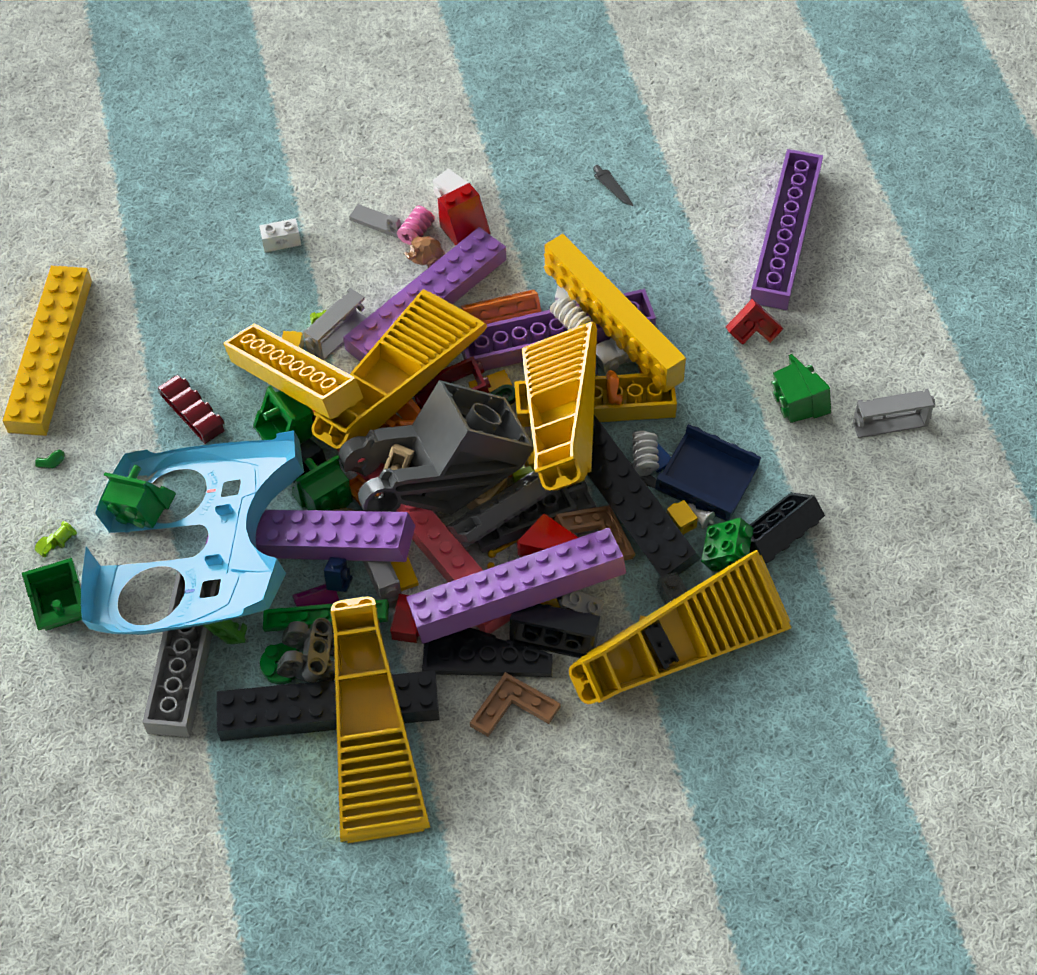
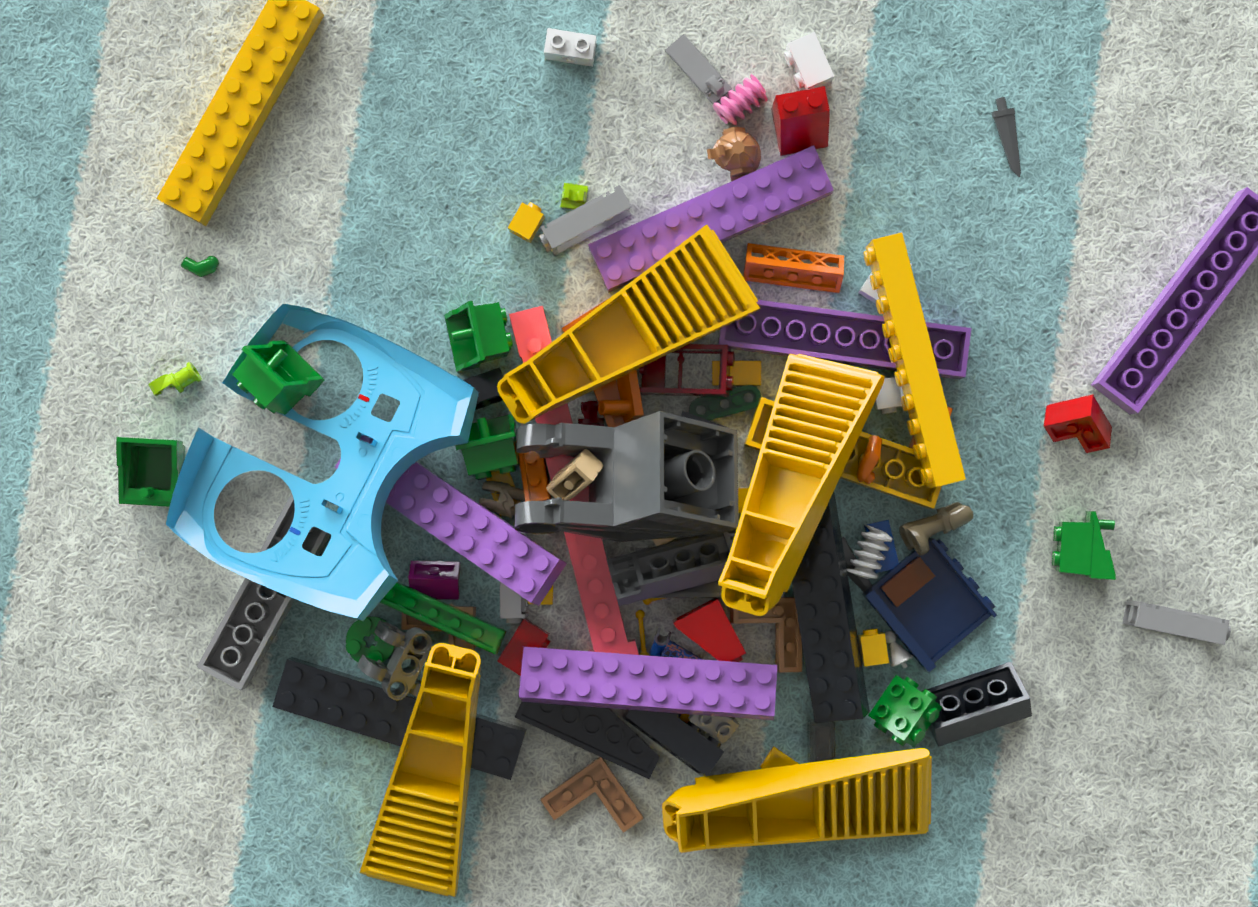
camera: 20 degrees right, 30 degrees up
(191, 408) = (380, 264): dark red brick -> none
(294, 371) = (504, 295): yellow brick -> none
(337, 575) = (463, 575): dark blue brick -> none
(569, 313) = (864, 340): white piece -> none
(659, 645) = (776, 811): black hinge -> none
(675, 427) = (948, 518): none -> dark tan piece
(683, 462) = (907, 581): none -> reddish brown tile

